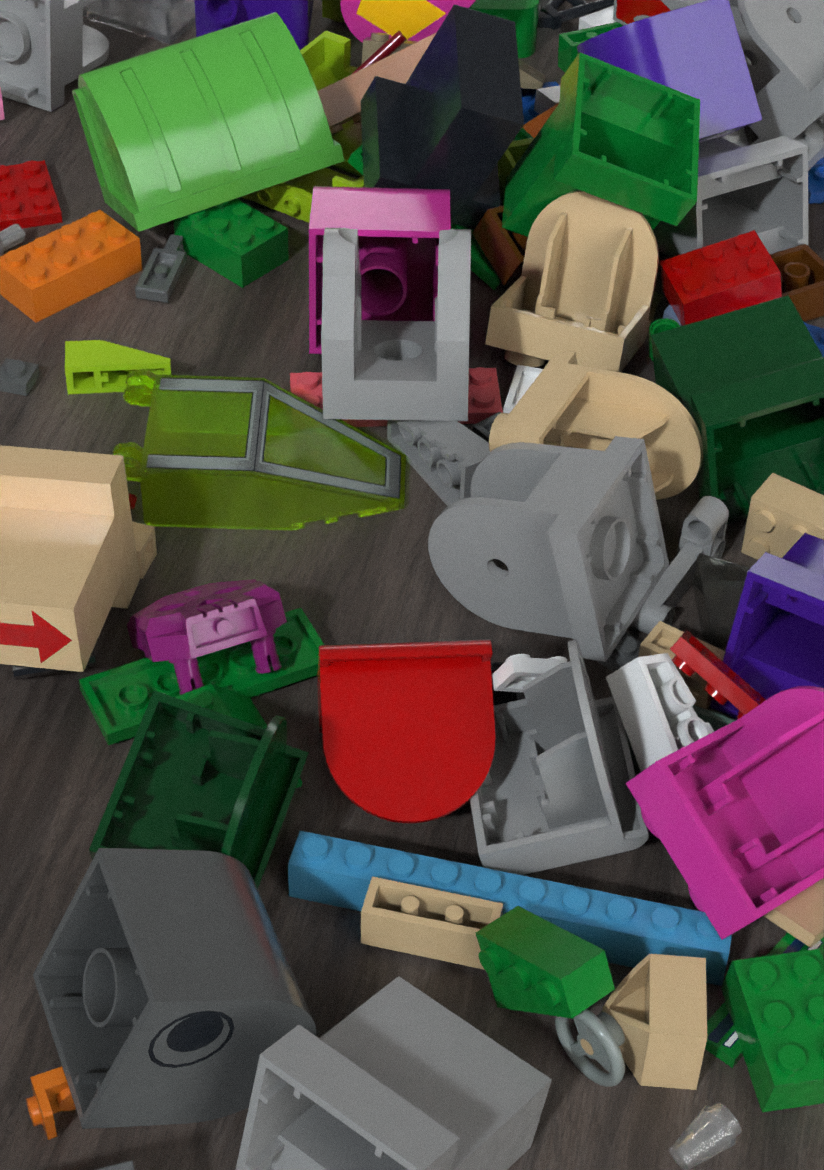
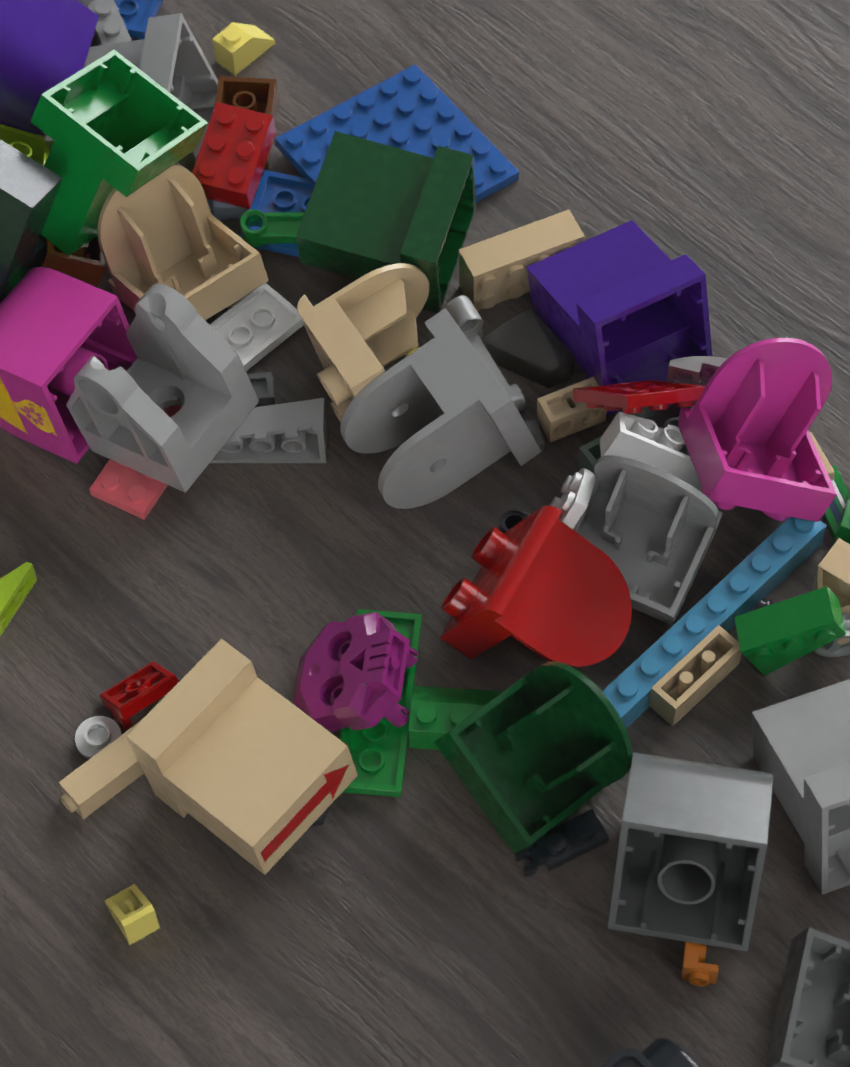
camera: 55 degrees left, 15 degrees up
(251, 457) = (182, 559): clear neon green windscreen -> none

